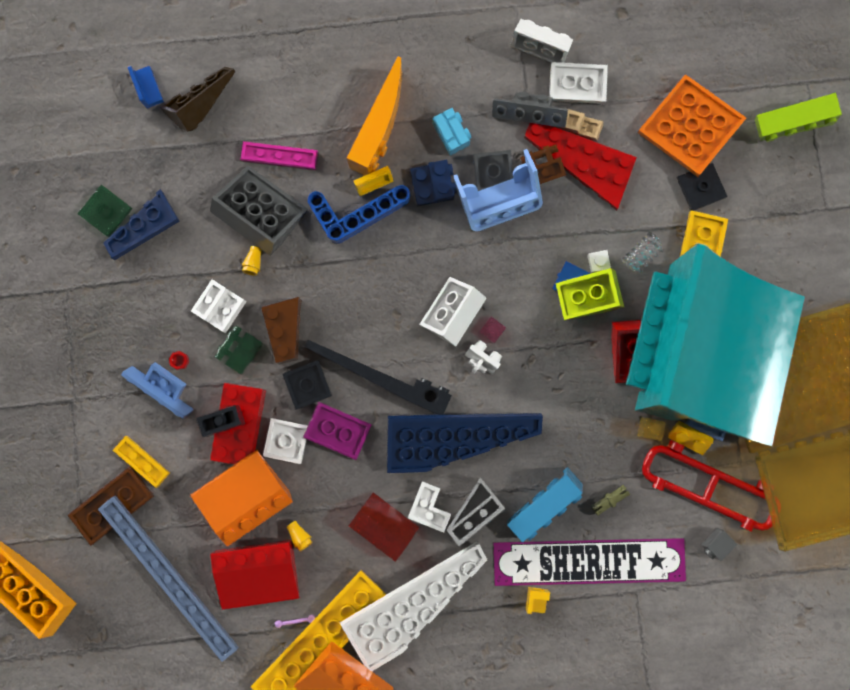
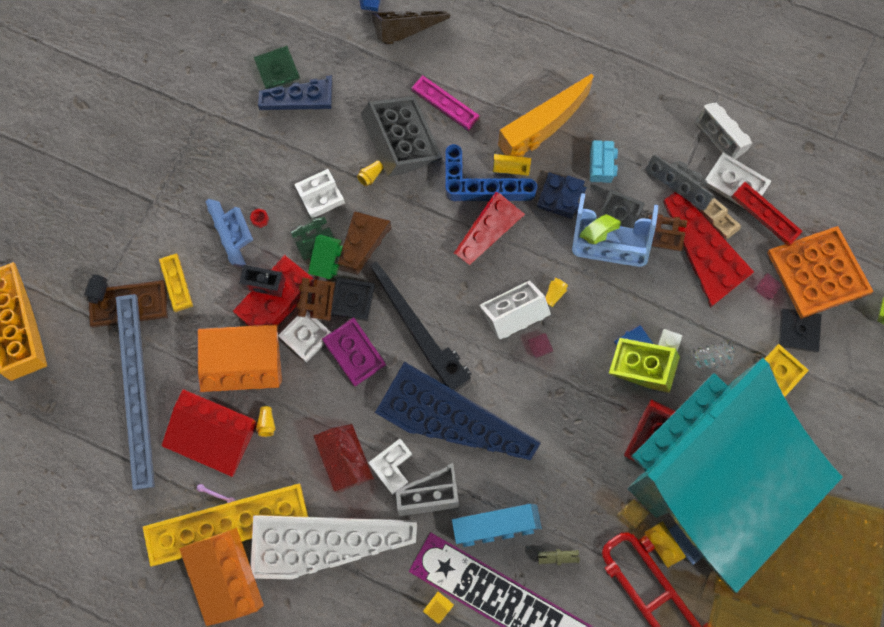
camera: 35 degrees right, 10 degrees down
(74, 512) = (95, 289): none -> black brick
(260, 362) = (325, 257): none -> green brick
(281, 403) = (321, 299): none -> reddish brown plate
(388, 246) = (490, 225): none -> wing
(478, 275) = (555, 291): none -> yellow cone
(481, 360) = (515, 366): white hips -> none
(485, 197) = (599, 228): none -> lime slope
(620, 99) = (766, 214): none -> red plate
(655, 163) = (768, 286): none -> clear pink plate

